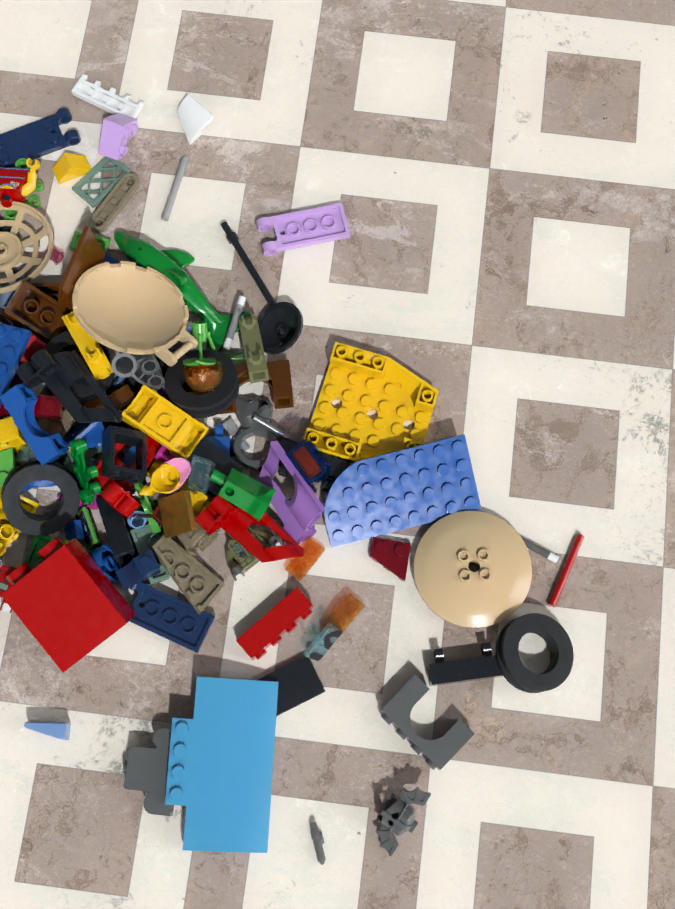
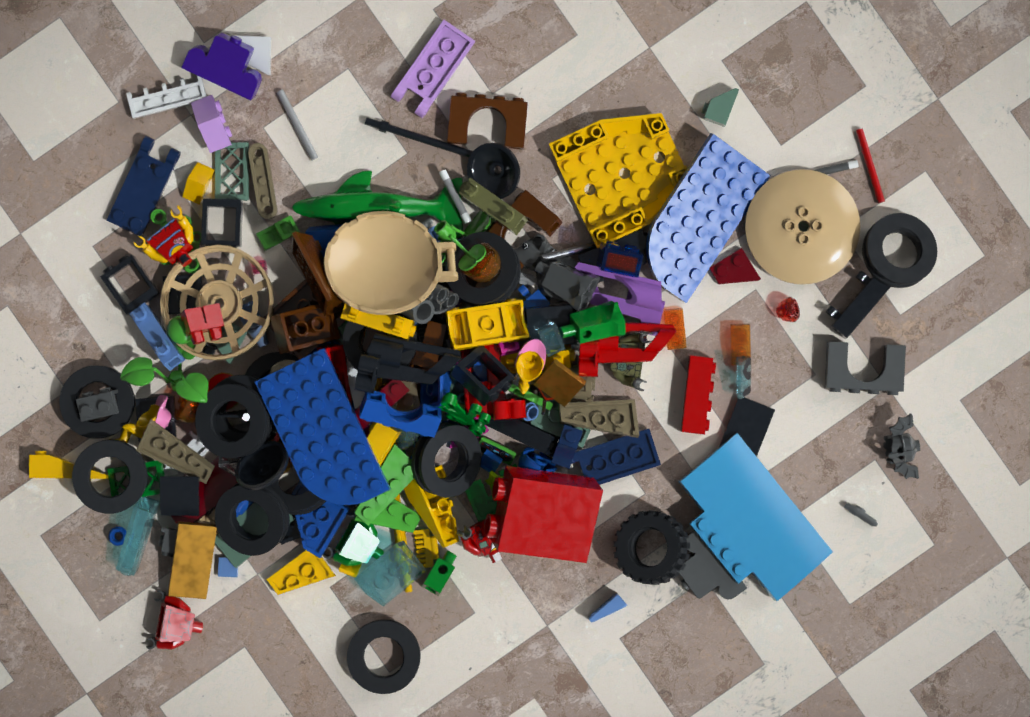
camera: 45 degrees left, 15 degrees up
(71, 213) = (222, 203): none -> black window
(108, 693) = (627, 542): none -> black tyre
(165, 108) = (225, 65): none -> dark purple brick
(255, 449) = (568, 283): none -> dark grey piece
(299, 271) = (464, 107): none -> reddish brown arch
(405, 622) = (788, 310): none -> clear red cone
(487, 427) = (720, 107): none -> sand green slope

